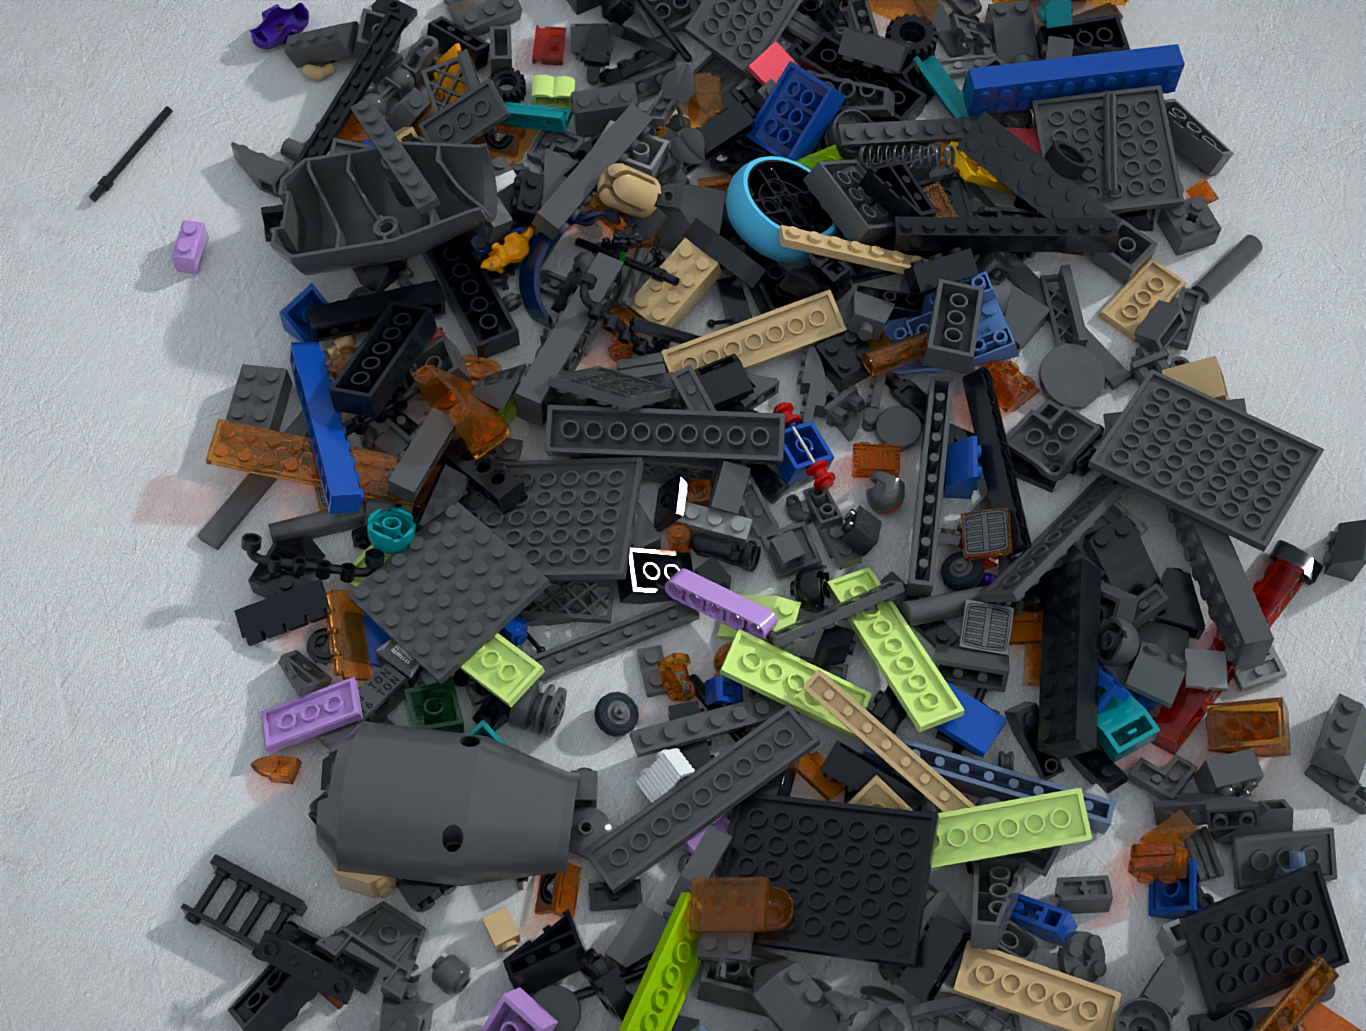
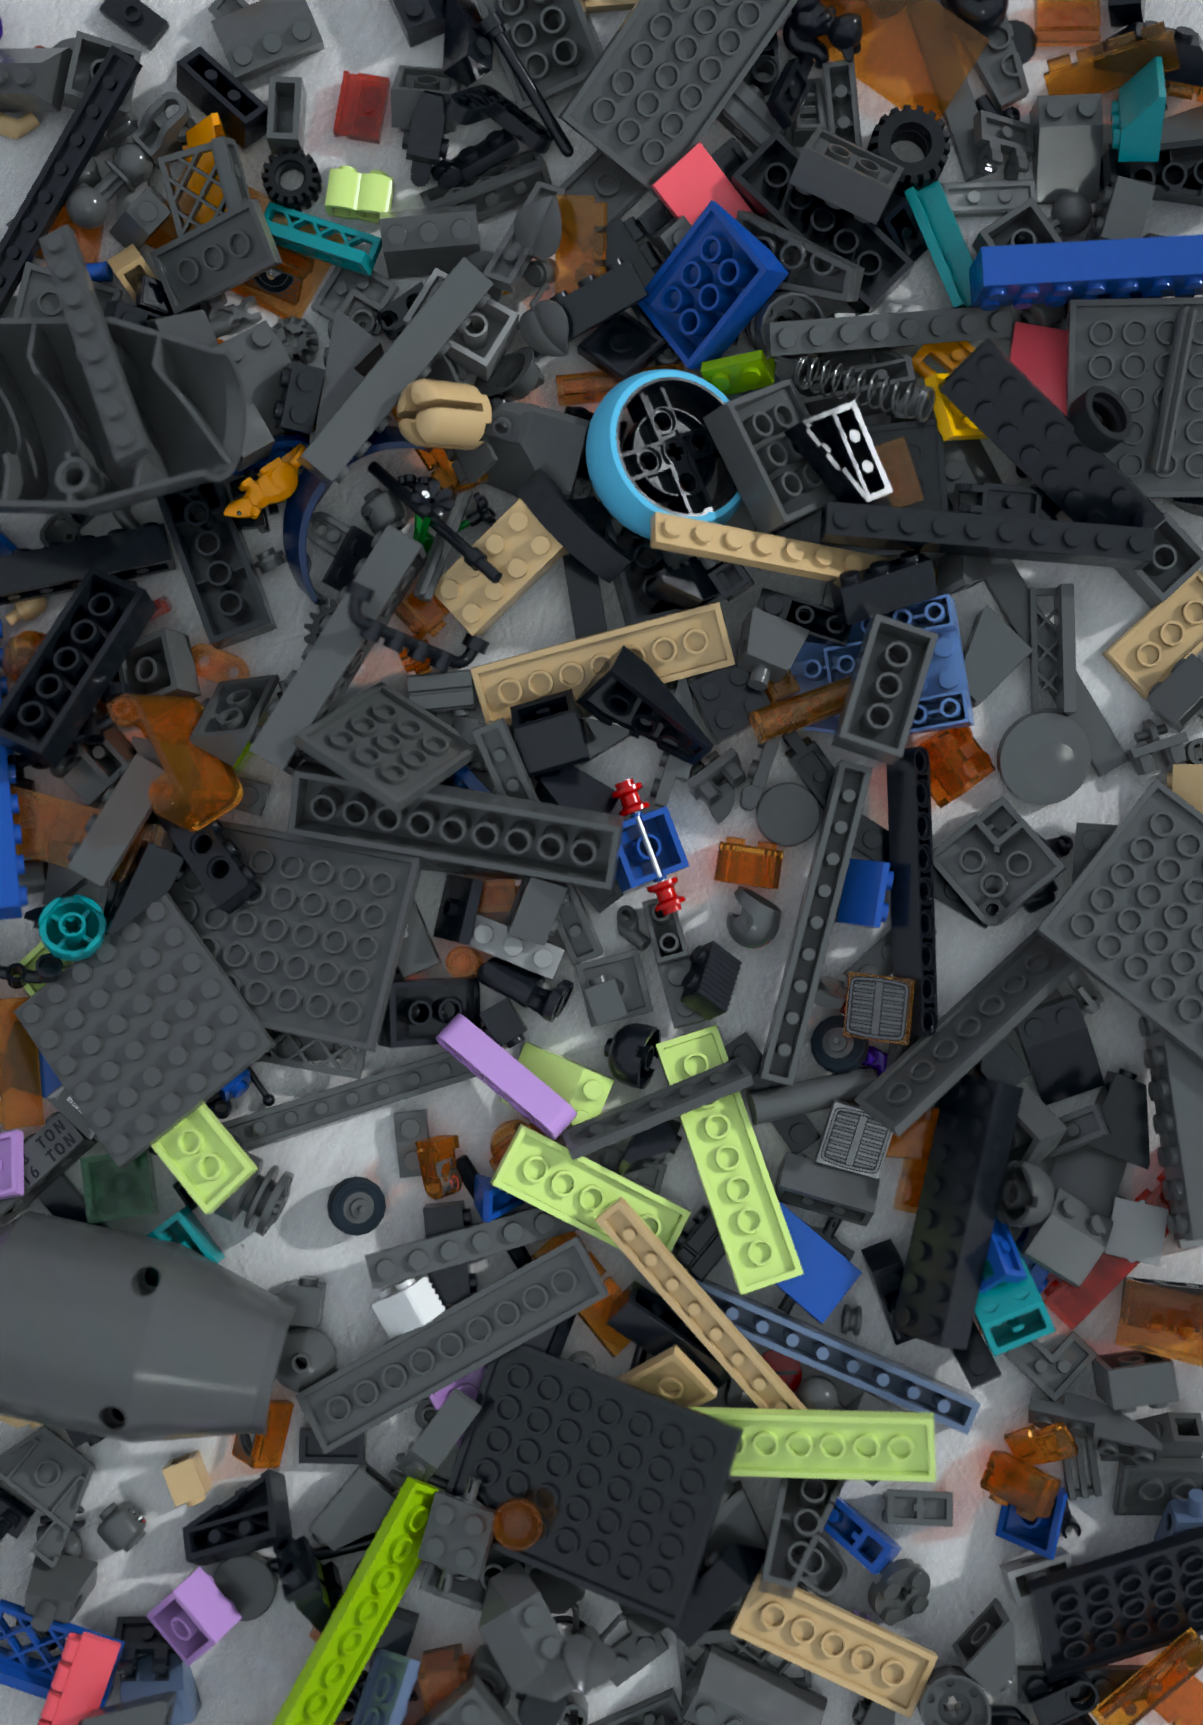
camera: 10 degrees right, 25 degrees up
(661, 331) = (477, 644): black axle -> none
(711, 323) = (549, 618): black hinge -> none
(729, 905) = (462, 1513): clear orange tile -> none
(784, 357) = (638, 700): none -> black wedge

